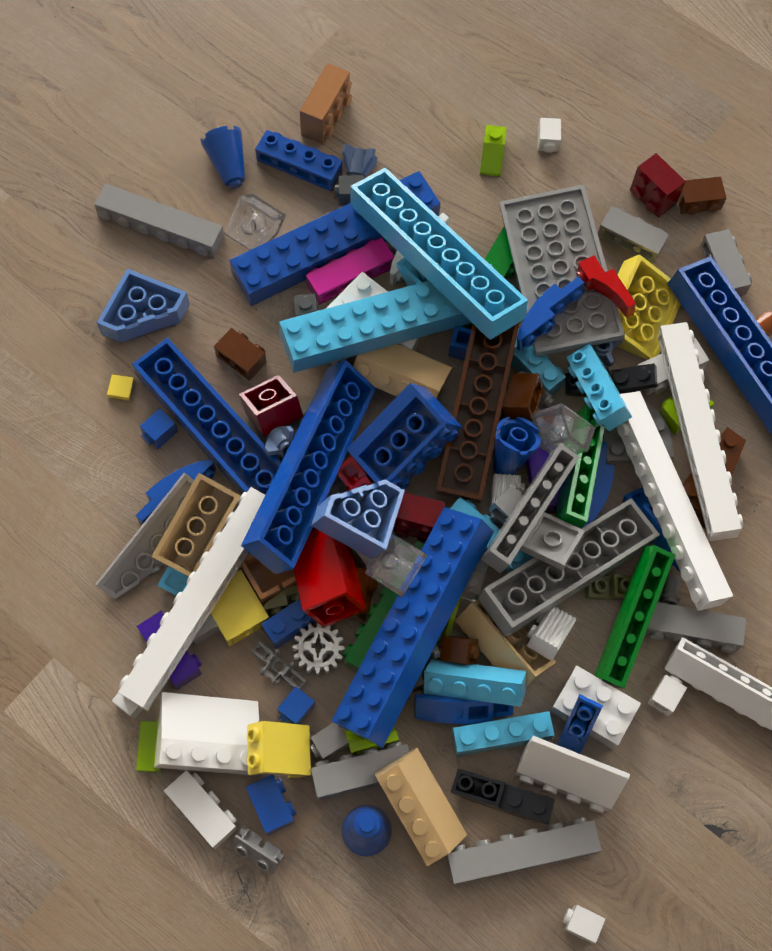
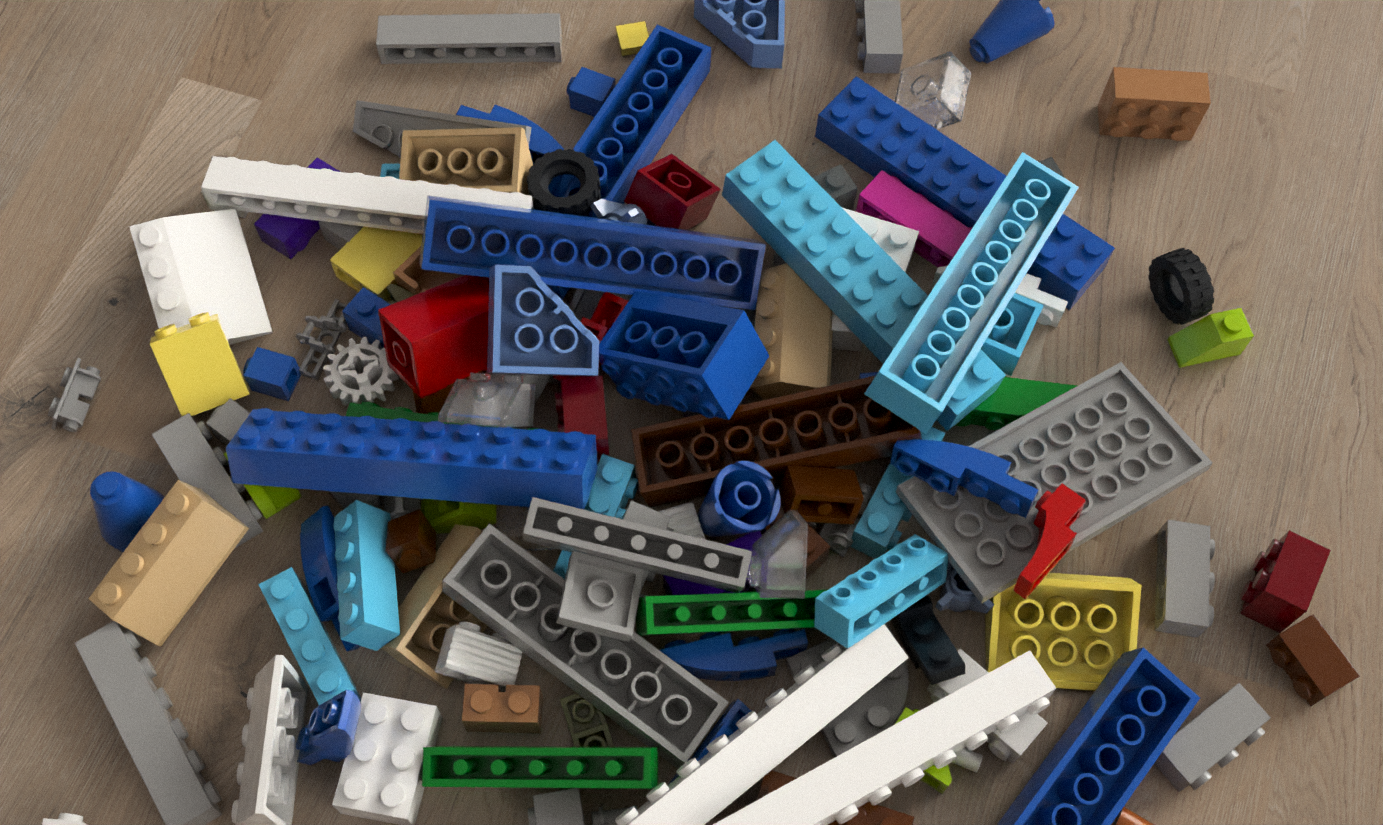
camera: 70 degrees right, 5 degrees down
(72, 494) = (469, 38): none -> light grey brick
(201, 808) = (106, 315): white brick -> none
(238, 449) = (564, 163): none -> black tyre
(240, 353) = (735, 140): reddish brown brick -> none
(270, 804) = (132, 389): blue brick -> none
(299, 160) = (1054, 108): blue brick -> none
(358, 160) = (1091, 176): sand blue brick -> none
(458, 139) = (1181, 286): none -> black tyre
(502, 797) = (222, 673): black slope -> none
(549, 134) = (1283, 405): white brick -> none
(584, 636) = (504, 712): none -> medium nougat piece

